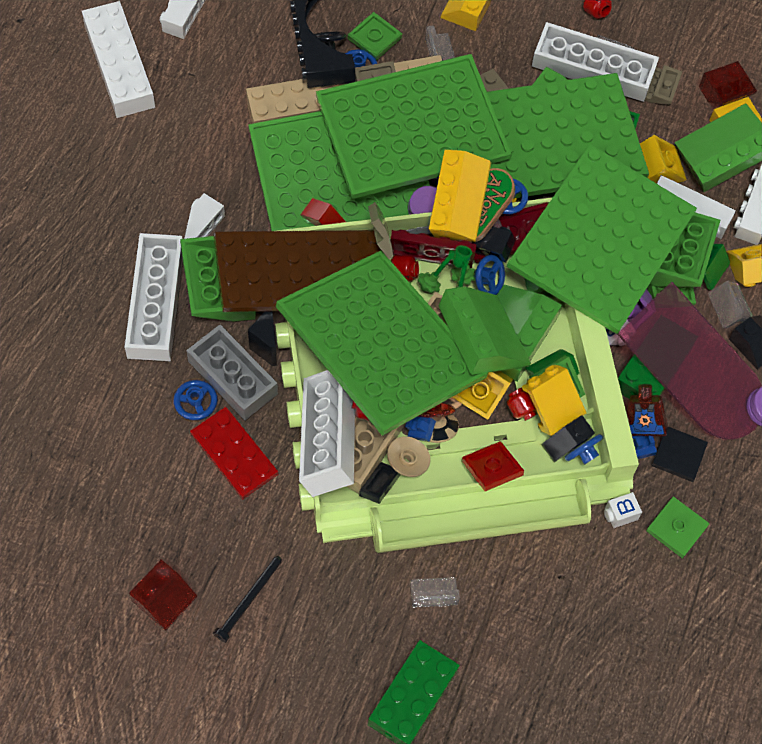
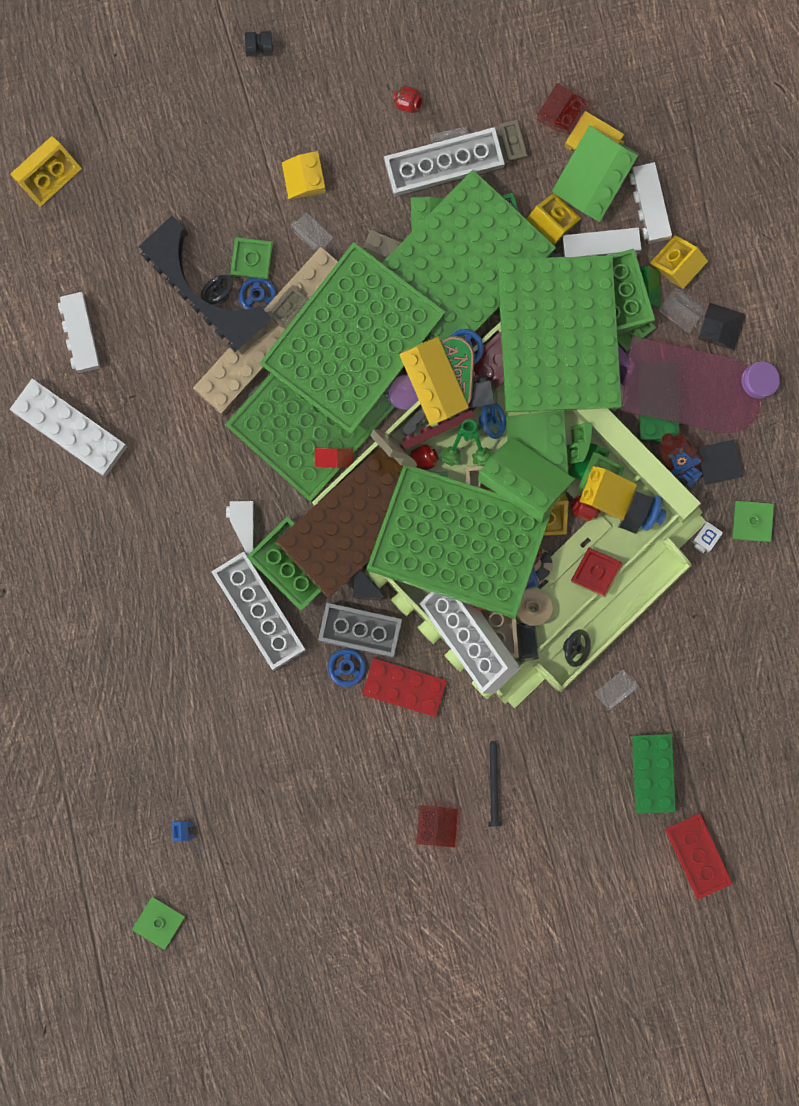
camera: 25 degrees left, 20 degrees up
(419, 516) = (573, 646): none -> black piece
(556, 341) = (580, 443): none -> bright green slope

